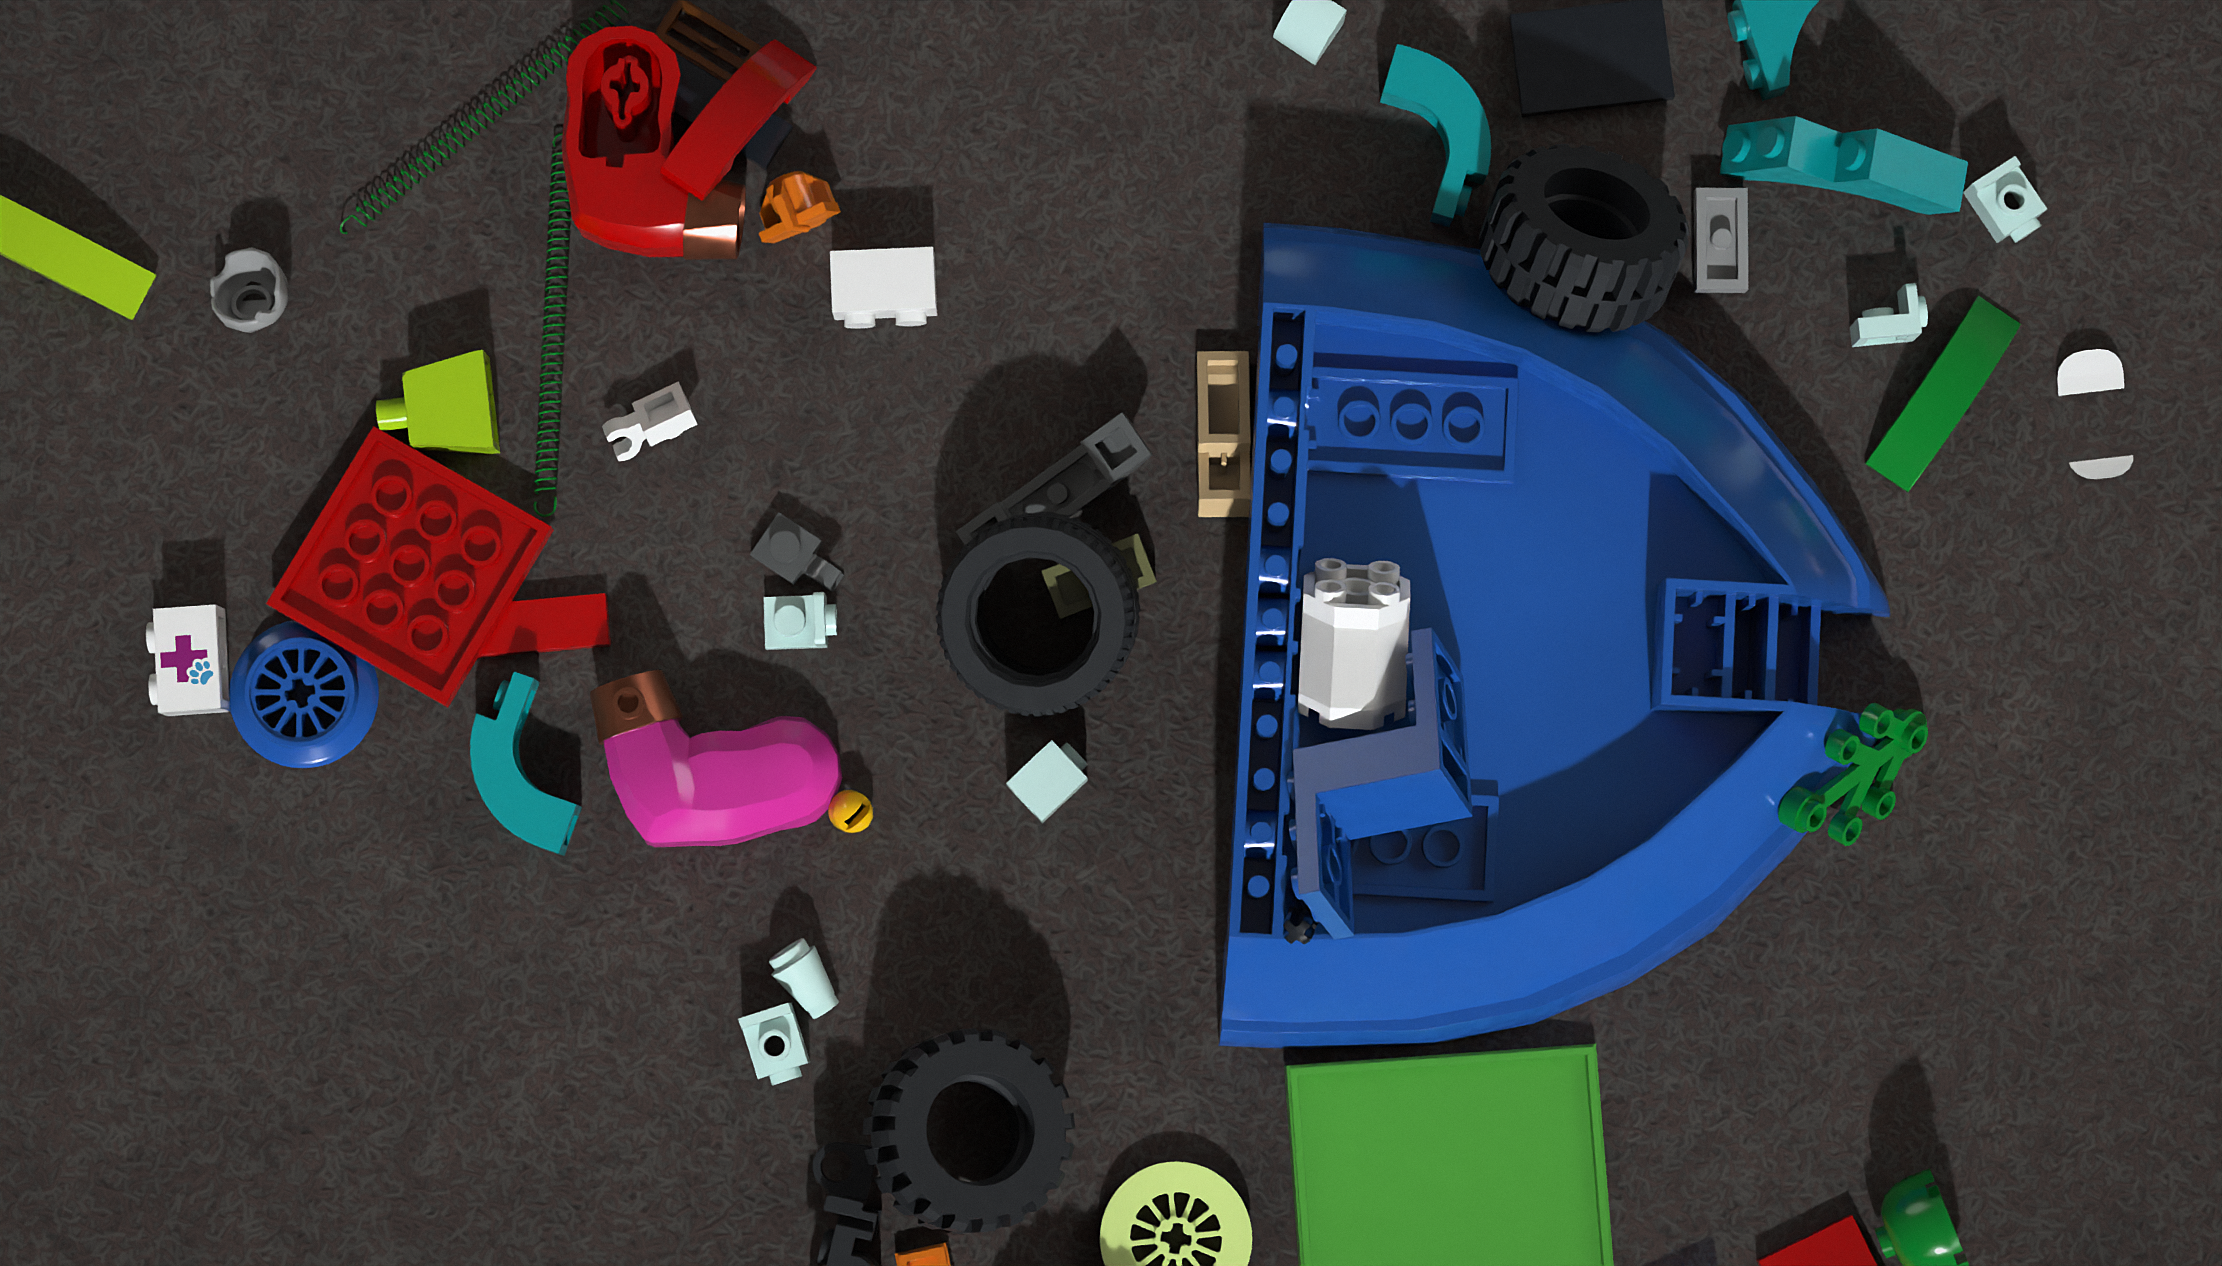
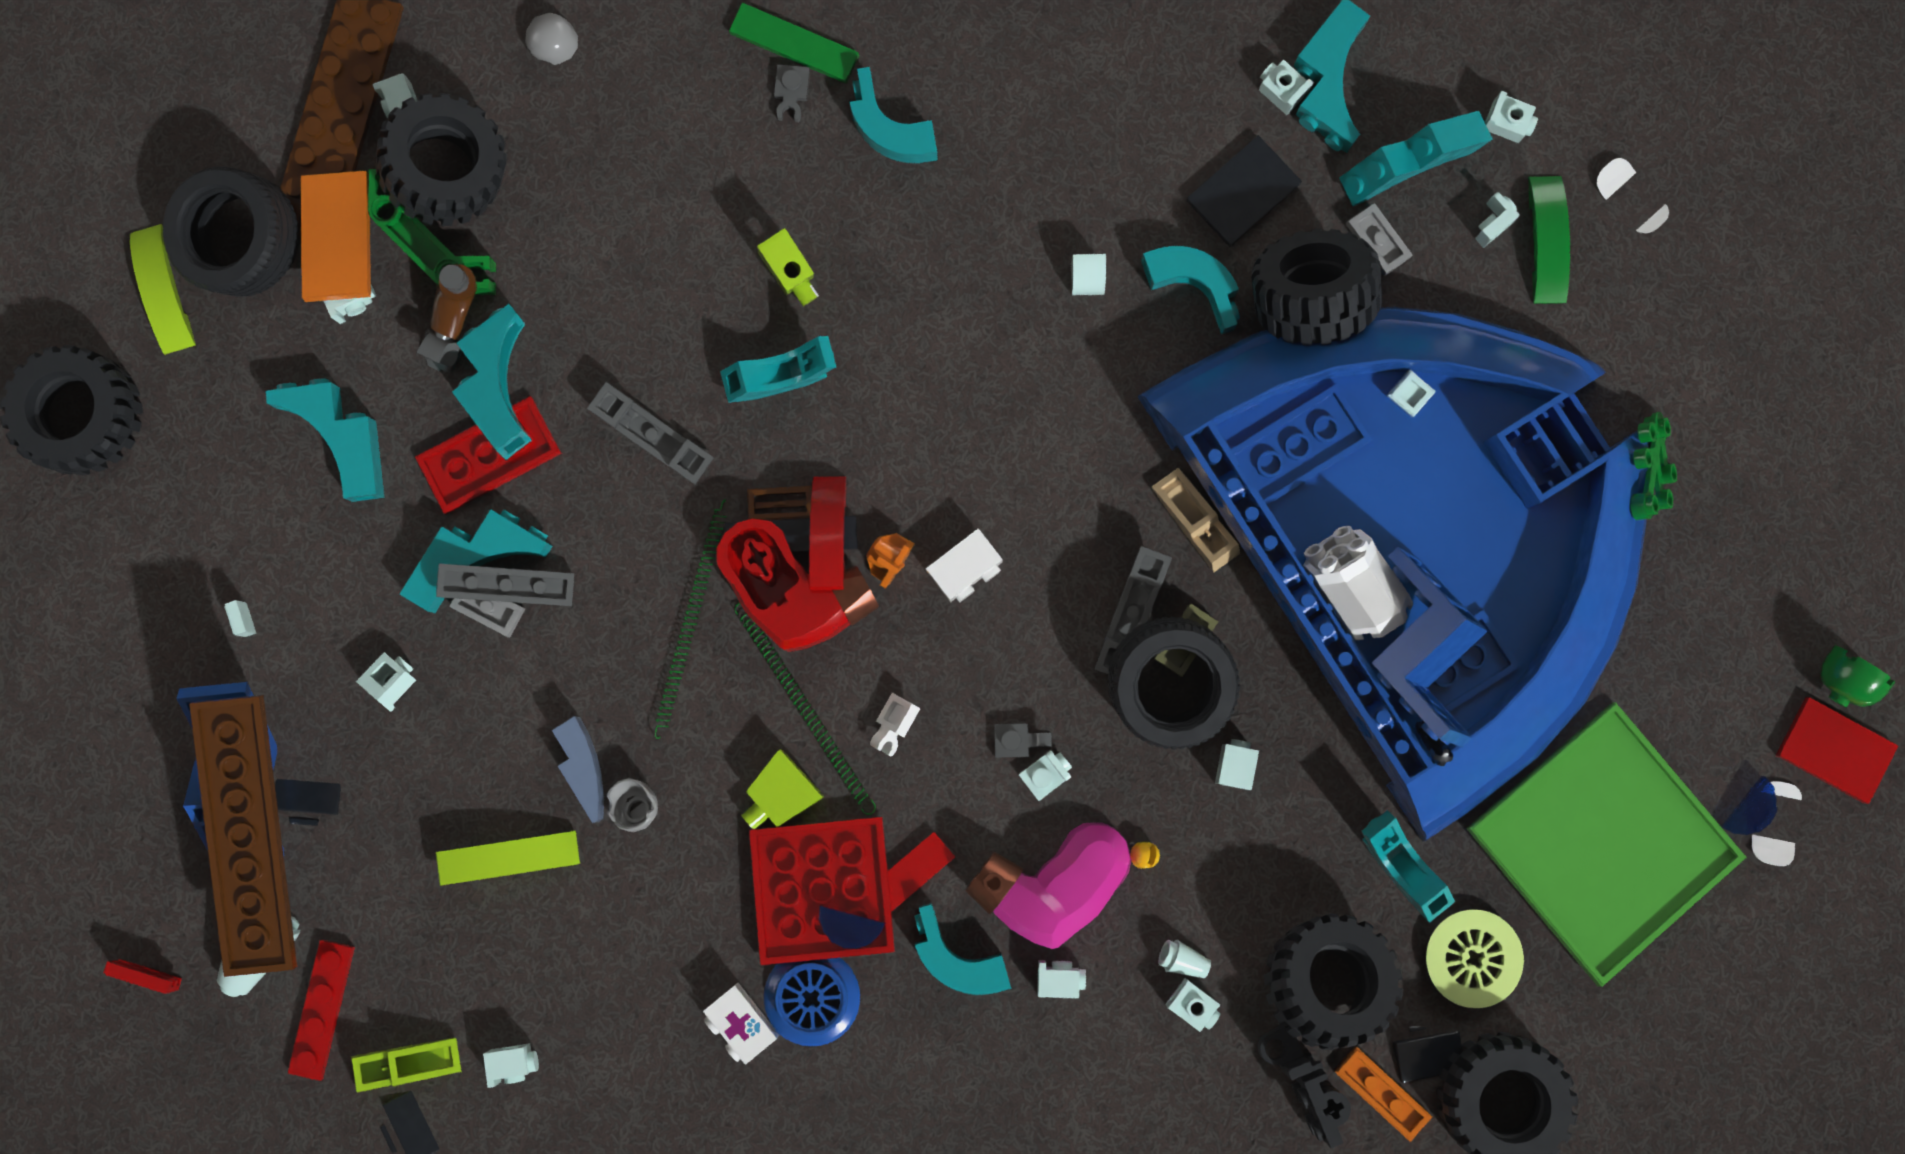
camera: 30 degrees left, 0 degrees up
(220, 200) = (582, 767): none -> sand blue slope
(408, 636) = (849, 929): none -> clear blue tile
(629, 890) = (1060, 980): none -> light aqua brick
(1170, 1055) = (1405, 867): none -> teal arch
(1604, 457) = (1411, 393): none -> light aqua tile

